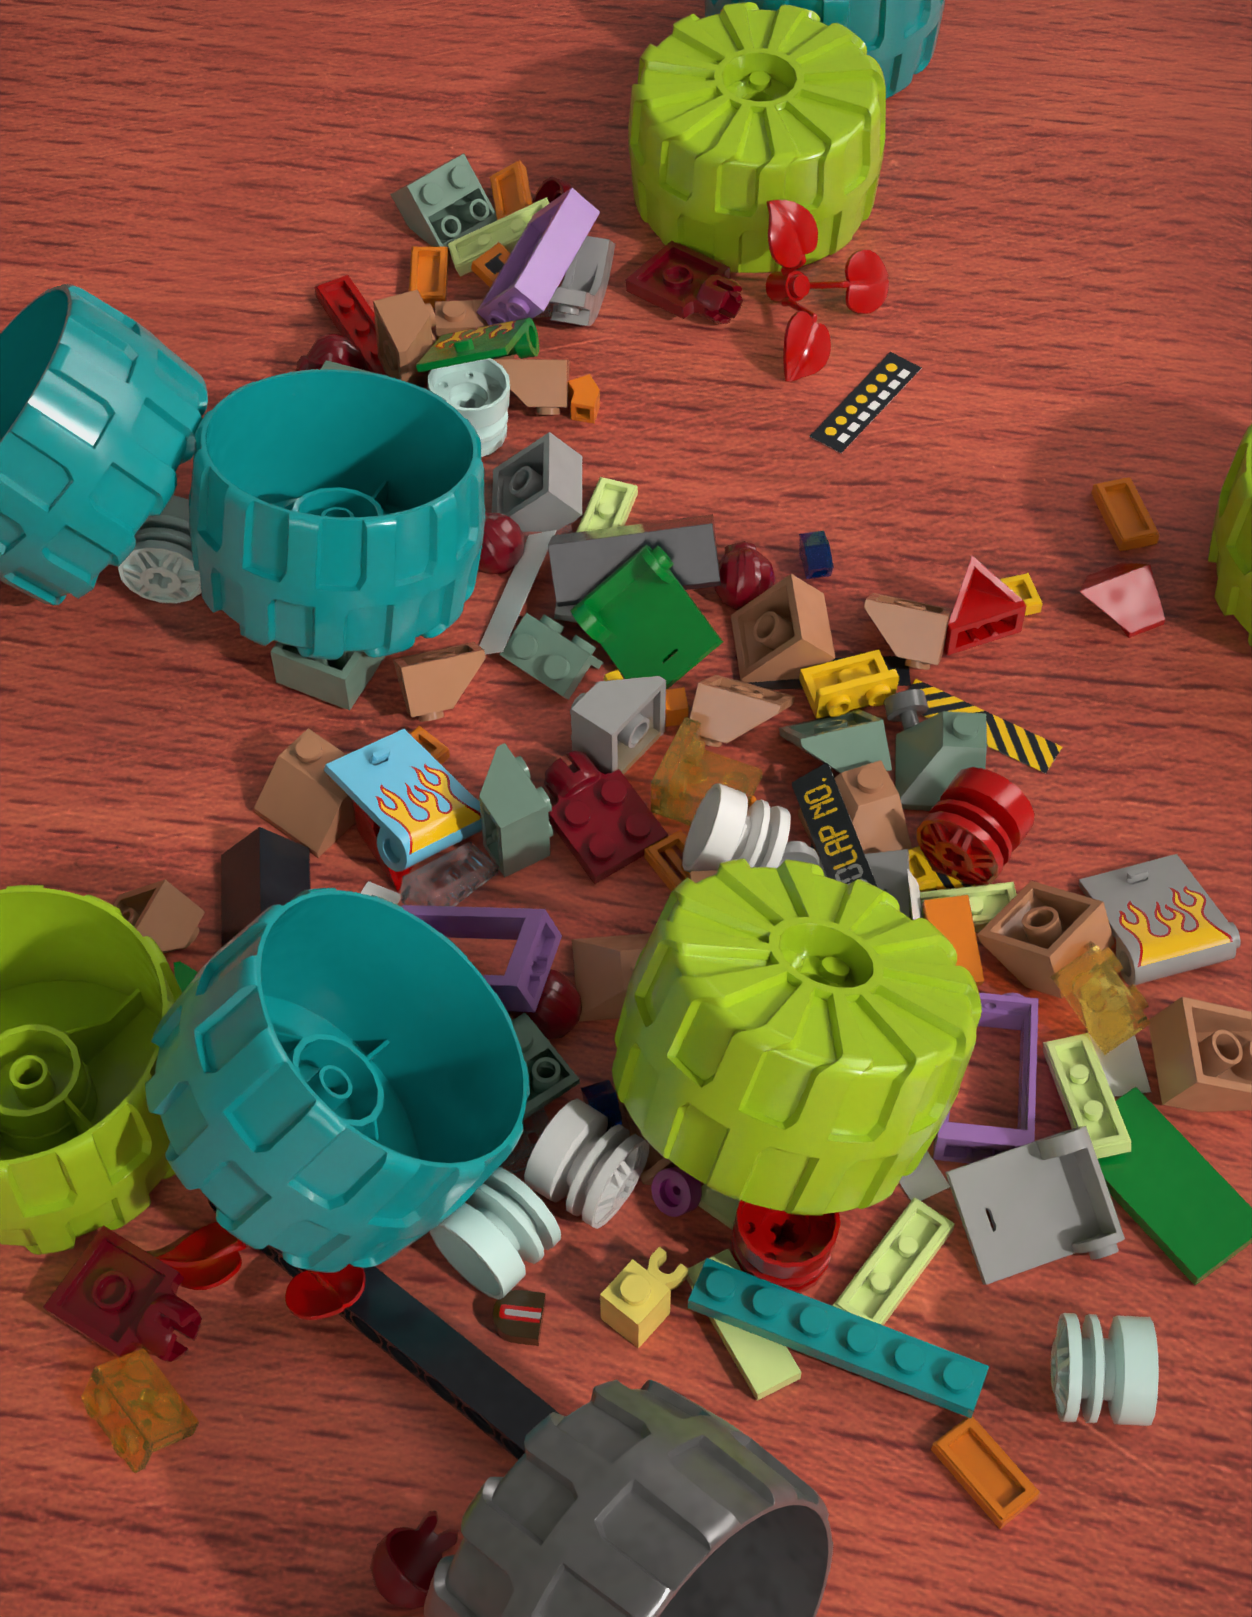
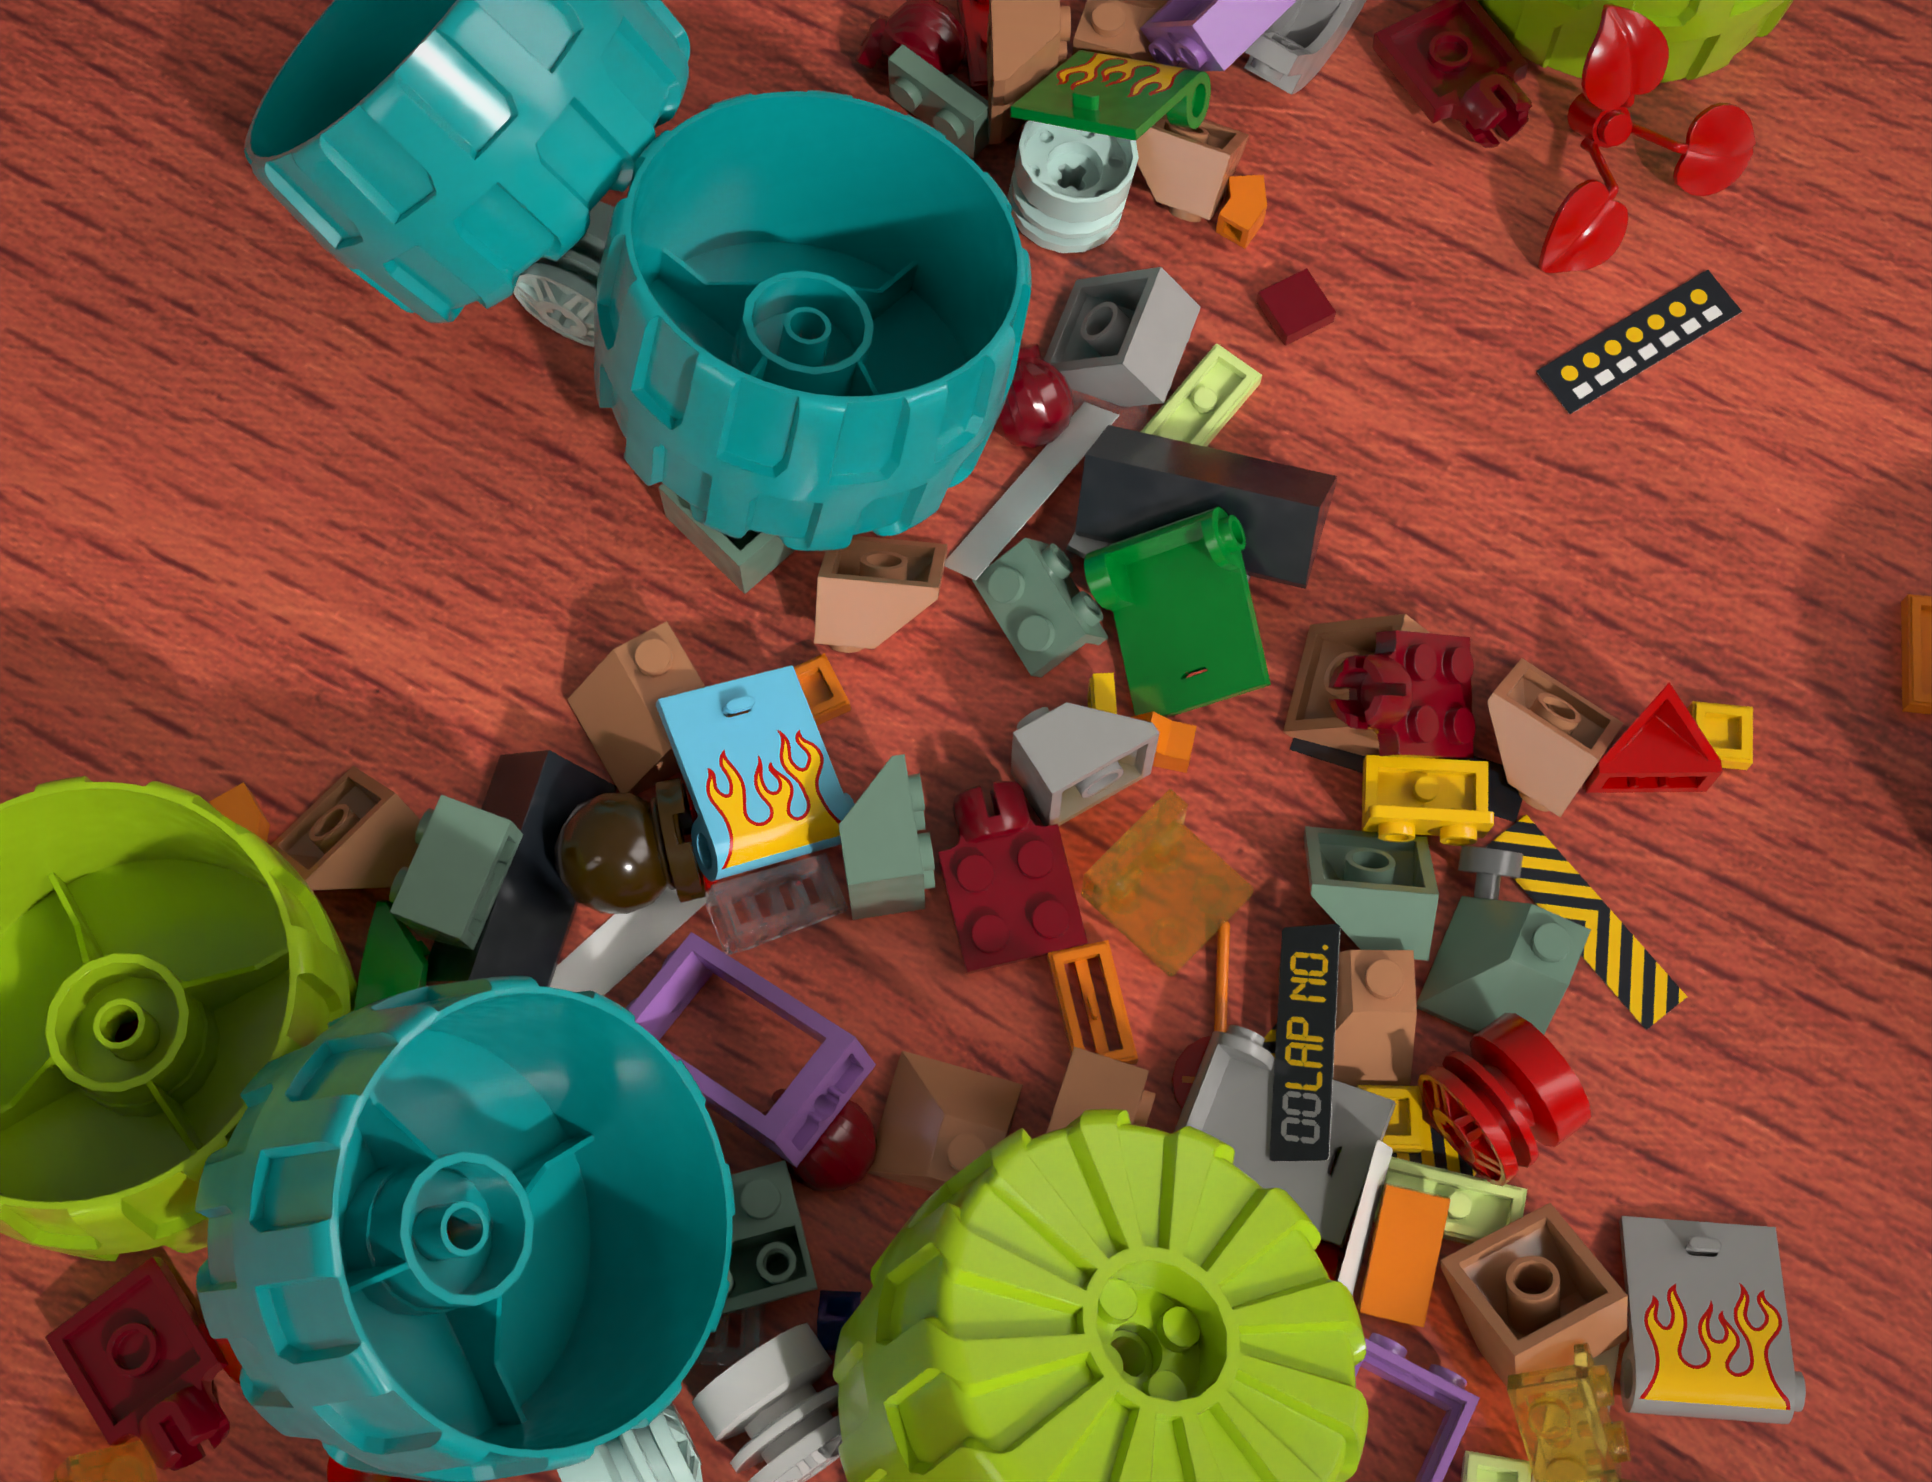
camera: 20 degrees right, 15 degrees up
(227, 902) = (454, 872): none -> sand green slope
(344, 860) = (626, 850): none -> dark brown tile
(642, 443) = (1296, 306): none -> dark red tile
(729, 831) = (1165, 1004): white wheel -> none
(733, 708) = (1256, 782): nougat slope -> none
(743, 575) = (1351, 572): dark red piece -> none
(815, 554) = (1464, 572): clear blue piece -> none
(816, 616) = (1411, 694): none -> dark red plate
(1126, 595) = (1873, 792): slope -> none

